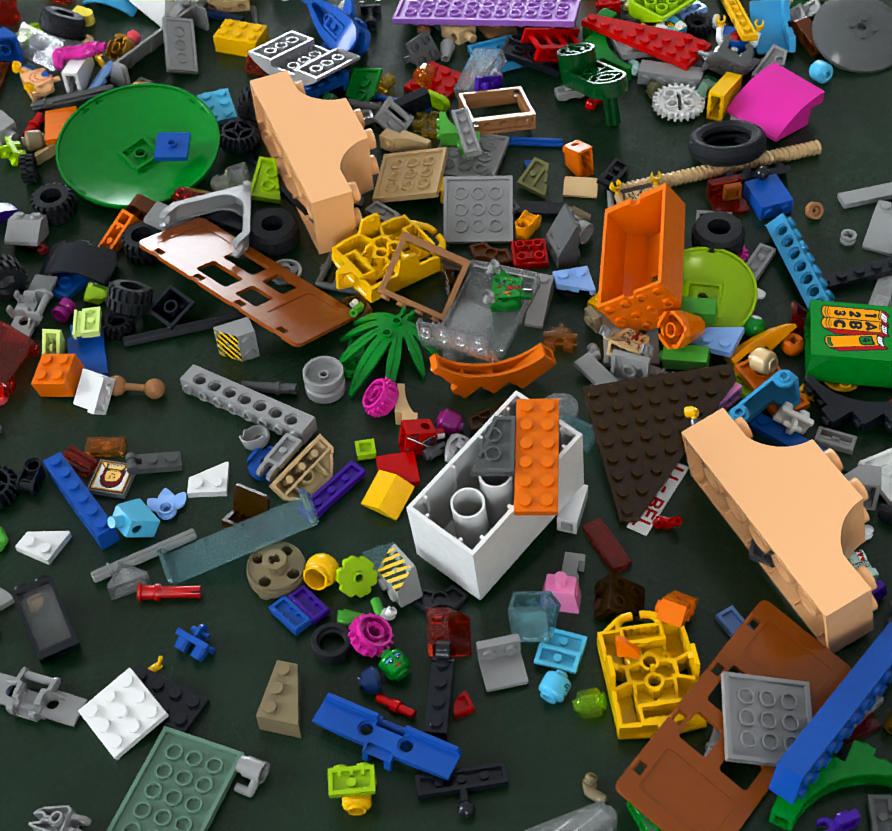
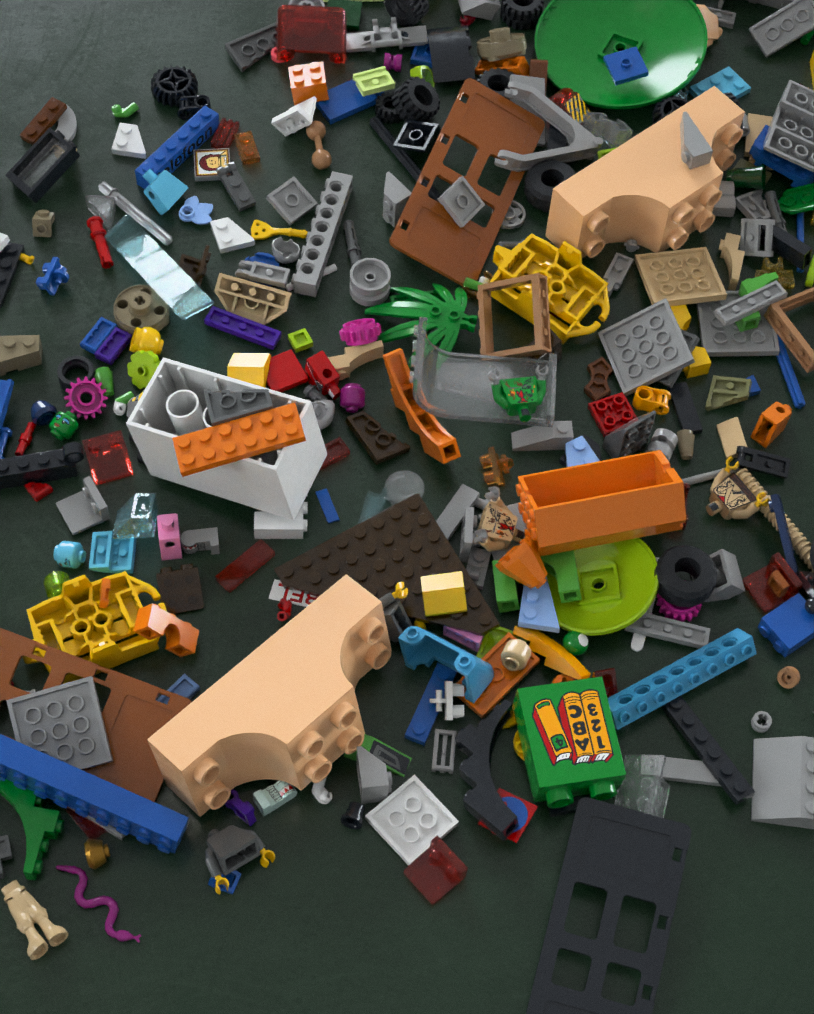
camera: 65 degrees right, 10 degrees up
(53, 341) = (342, 70): yellowish green slope -> none
(96, 223) = (501, 45): none -> dark tan piece
(118, 639) = (42, 223): none -> dark tan bracket
(196, 420) = (291, 200): none -> light grey hinge
(221, 448) = (269, 231): none -> yellow piece
(273, 285) = (461, 201): none -> light grey hinge
(310, 104) = (694, 147): none -> light grey slope
(685, 173) = (777, 507): none -> dark blue plate
(694, 390) = (443, 594): none -> yellow slope

